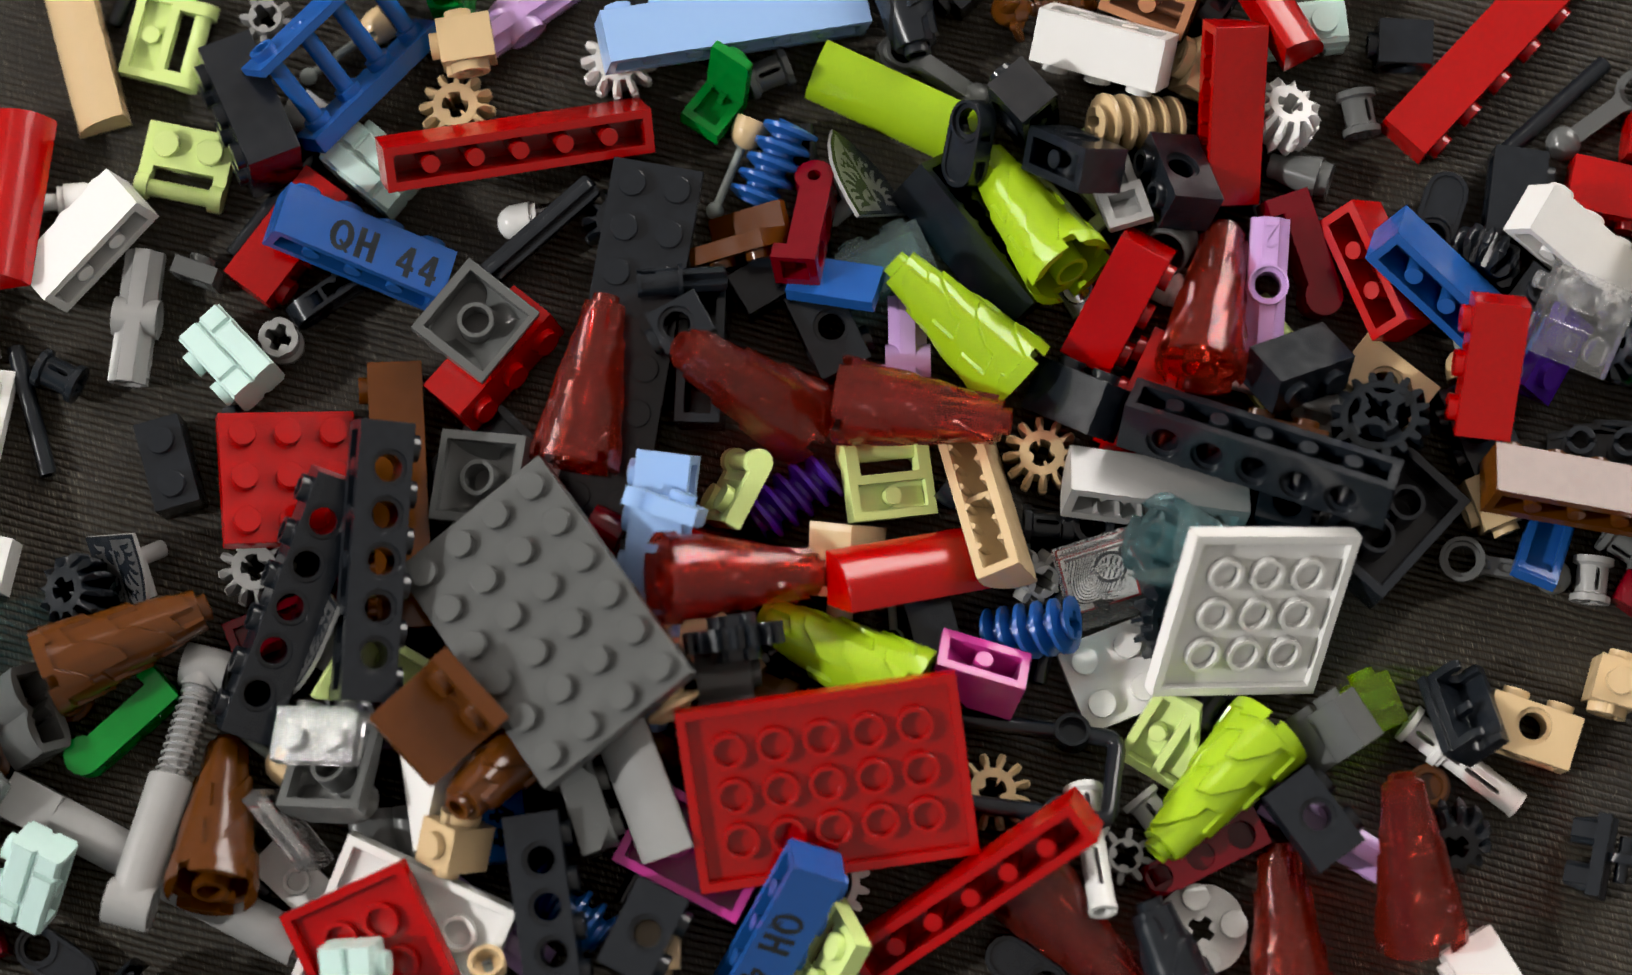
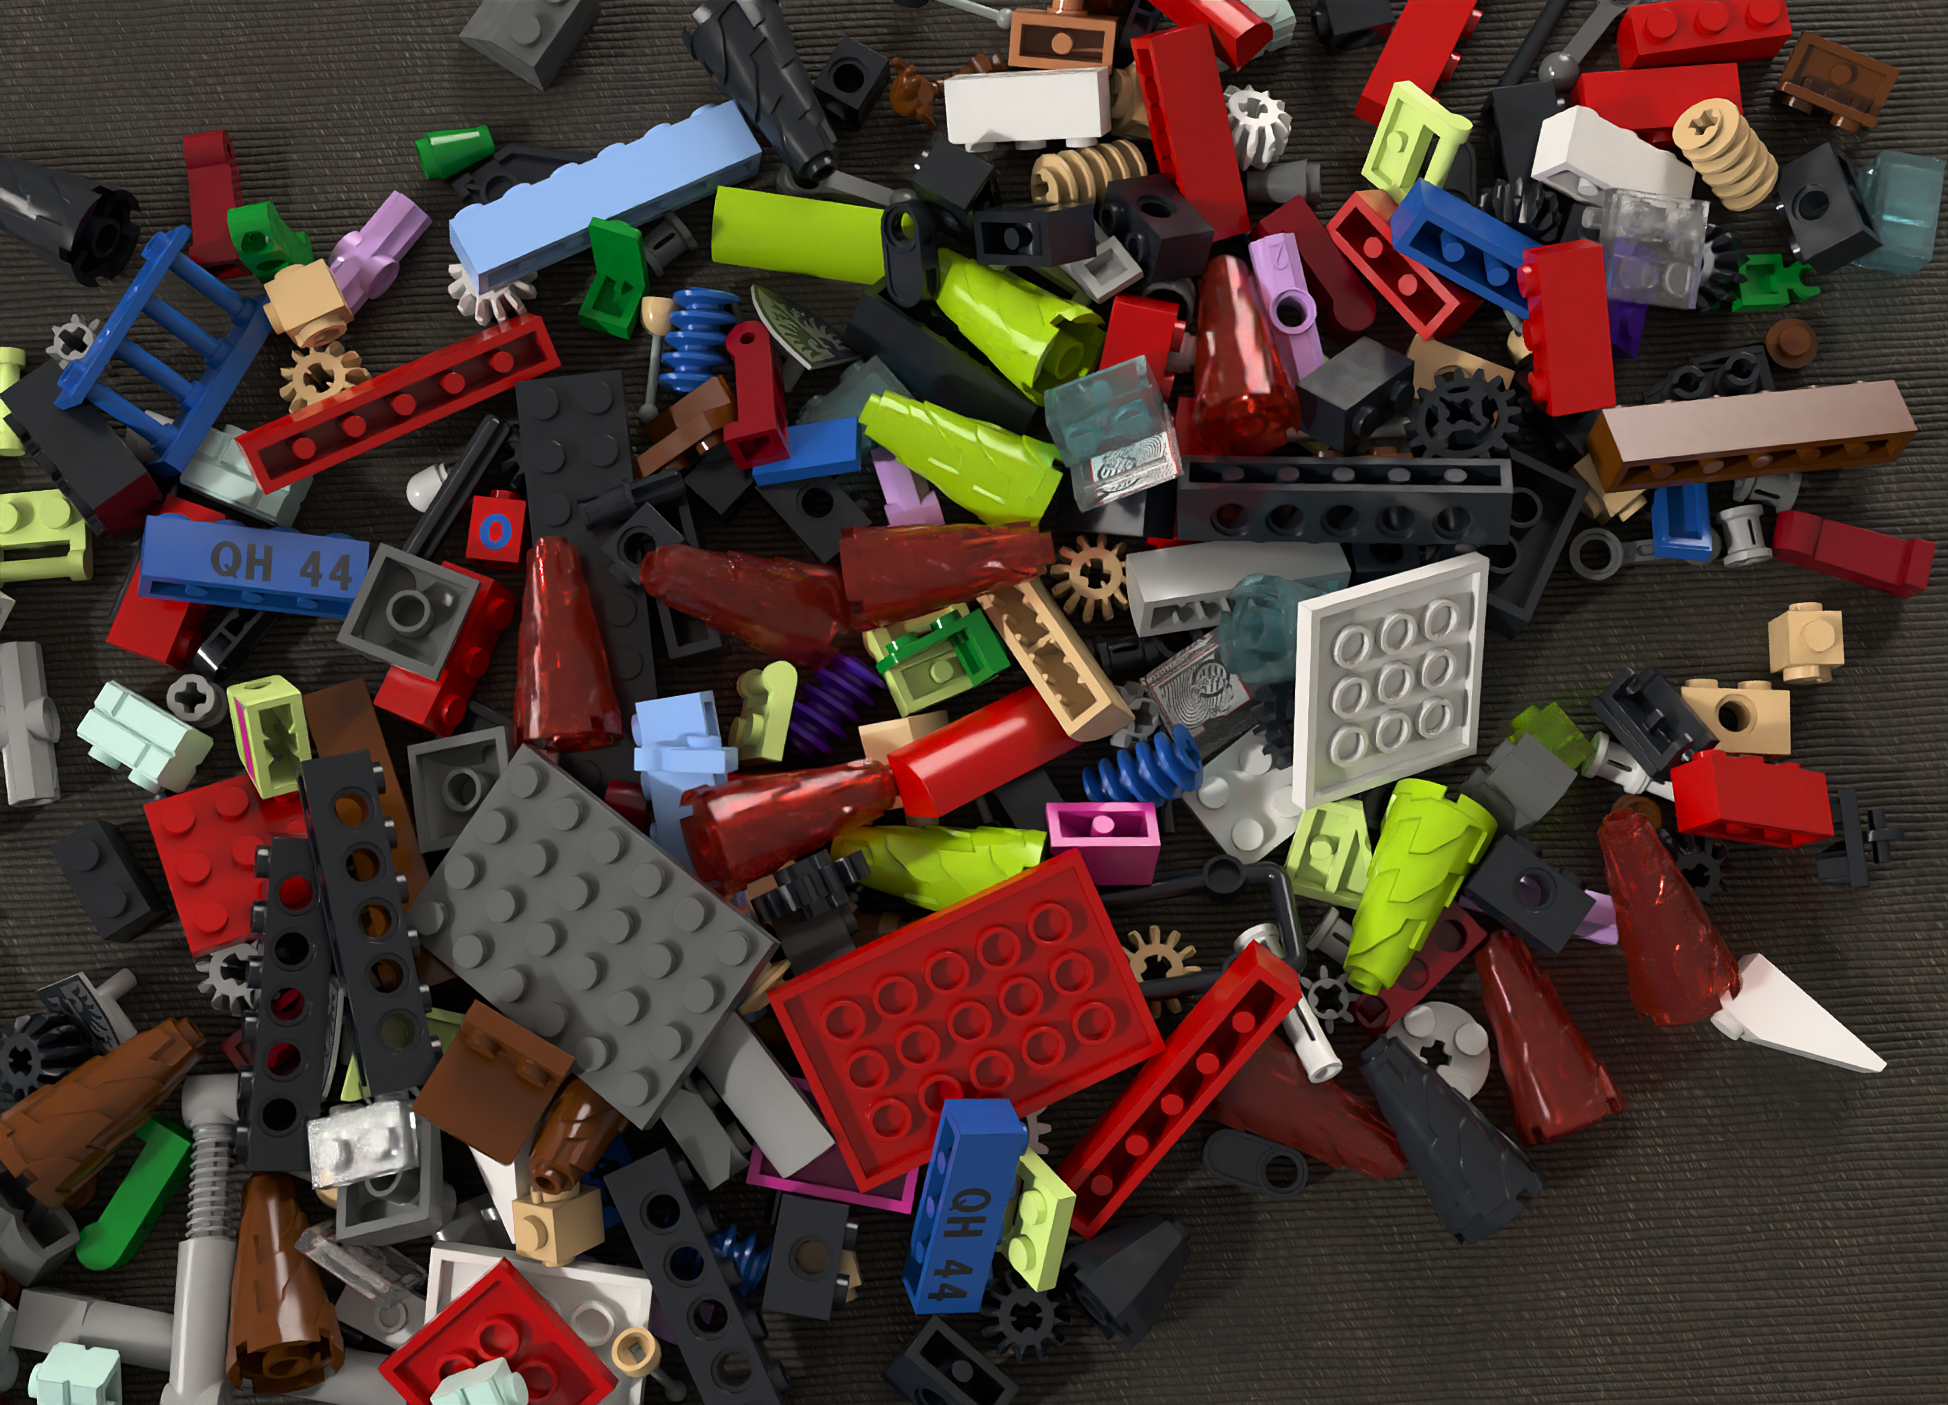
camera: 20 degrees left, 0 degrees up
(198, 271) = (80, 651): dark grey plate -> none
(337, 373) = (266, 720): none -> yellowish green torso
(378, 27) = (207, 317): hinge -> none
(565, 274) = (499, 532): none -> red brick
(924, 478) = (974, 642): none -> green bracket
(1087, 323) = (1105, 411): none -> clear light blue brick
(1091, 365) = (1127, 469): none -> clear tile
(1358, 113) = (1328, 101): dark grey bush -> none
(1409, 165) = (1404, 139): none -> yellowish green plate
(1522, 798) = (1751, 800): none -> red brick

